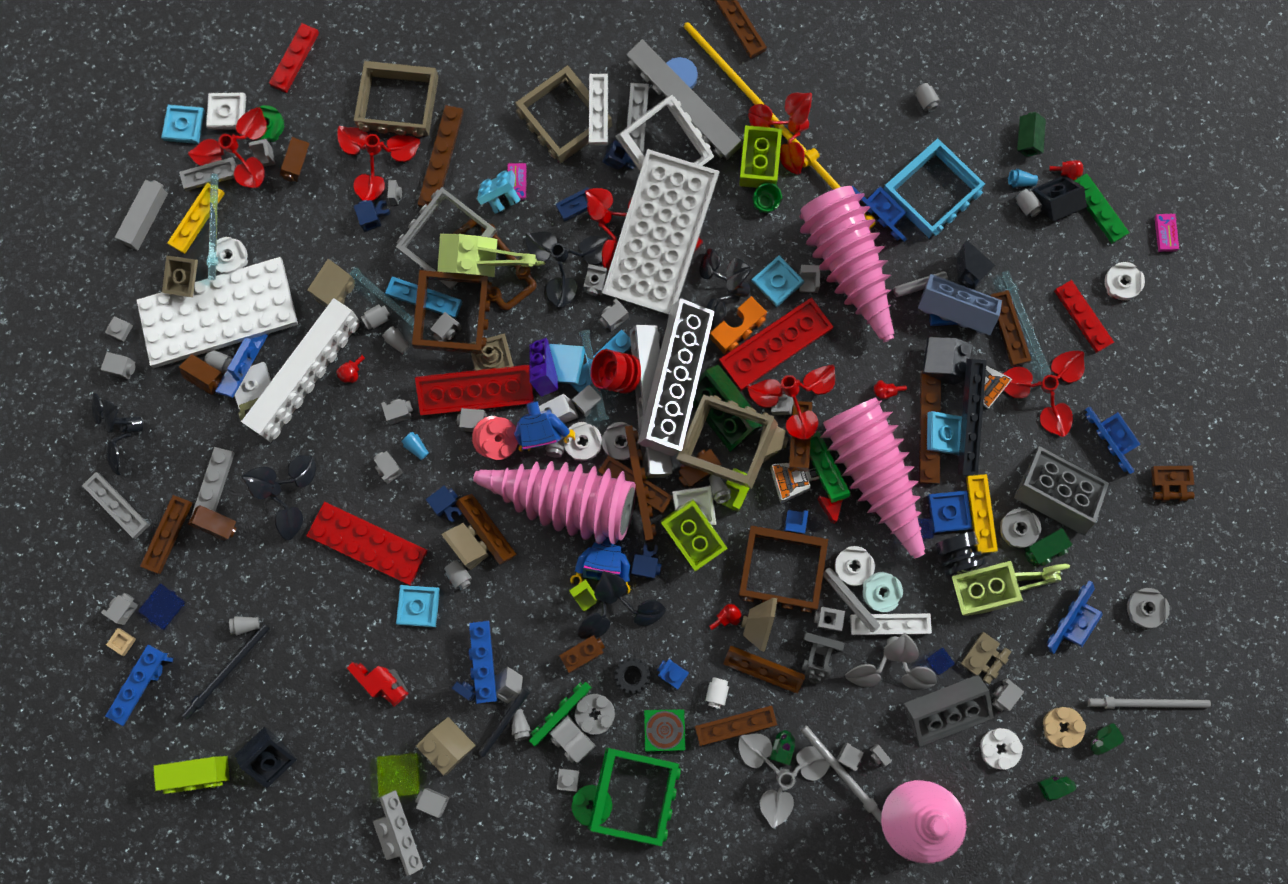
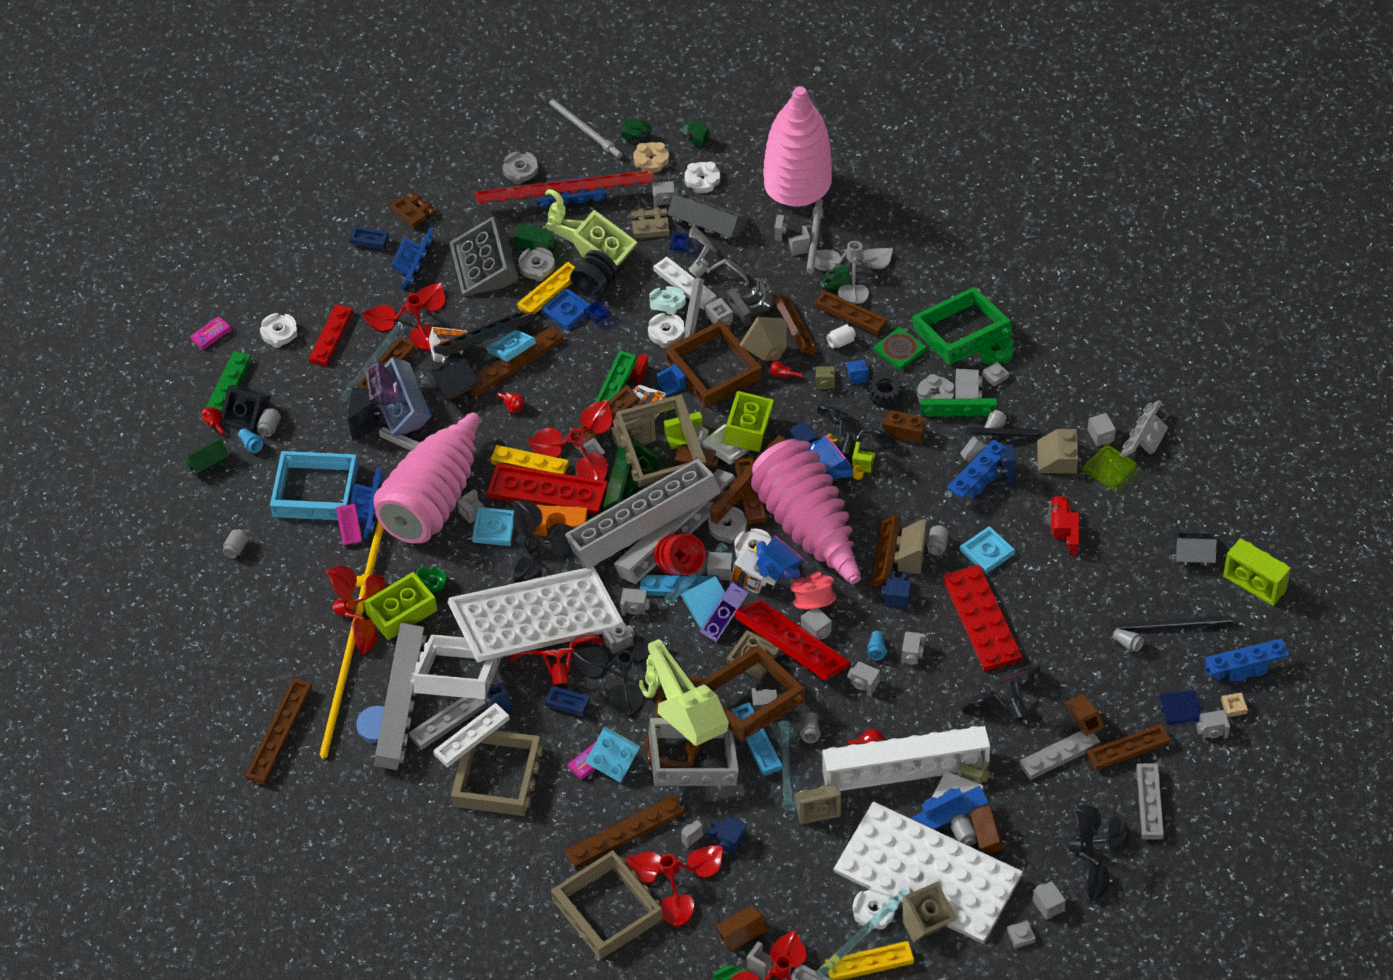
camera: 135 degrees left, 25 degrees down
(375, 316) = (807, 756): light grey brick -> none
(690, 643) = (825, 378): none -> olive bracket
(817, 354) = (527, 459): none -> yellow plate
(871, 181) = (349, 524): none -> dark pink tile
(877, 469) = (580, 356): bright pink cone -> none
(974, 283) = (381, 384): none -> clear purple slope
(1083, 615) = (571, 186): none -> red plate
(1169, 423) = (369, 237): none -> dark blue plate

